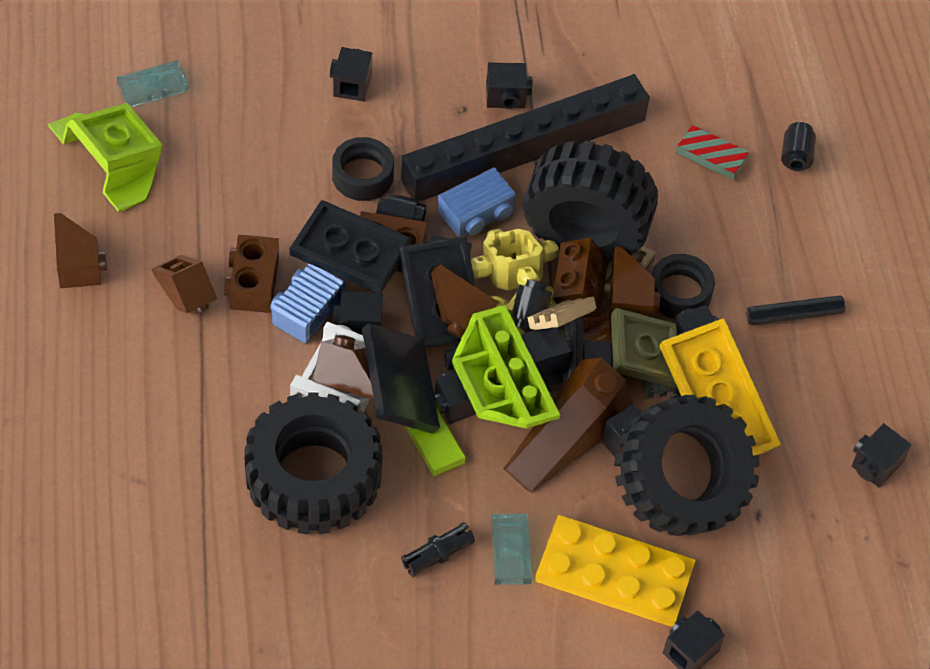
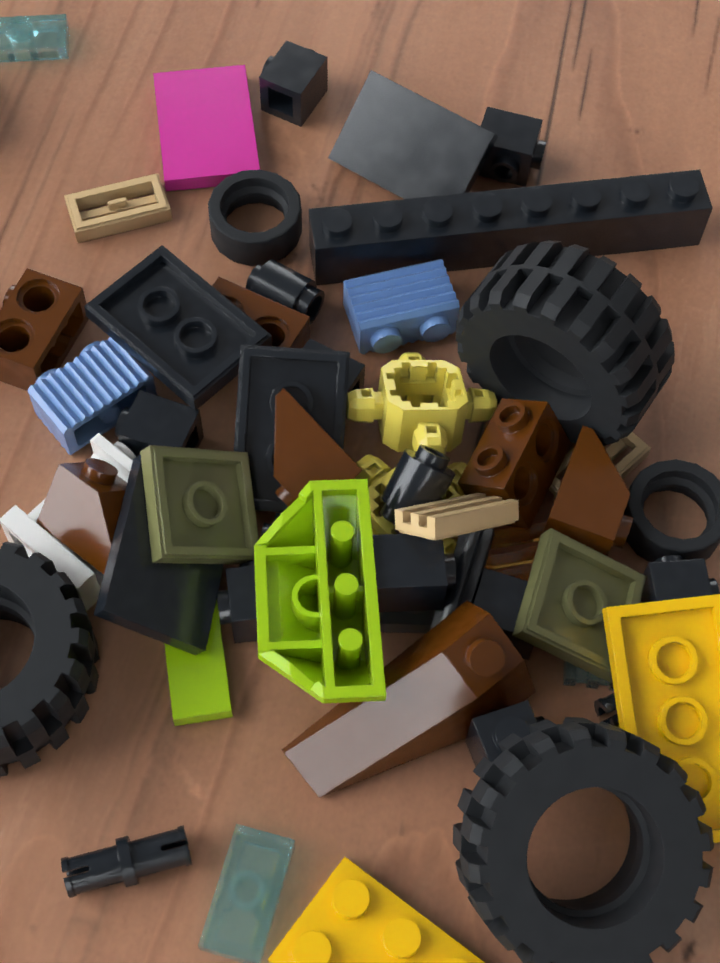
camera: 20 degrees right, 5 degrees up
(272, 186) = (119, 214): none -> tan tile
(303, 116) = (204, 126): none -> dark pink tile
(409, 346) = (199, 505): none -> olive tile
(446, 98) = (410, 142): none -> black tile

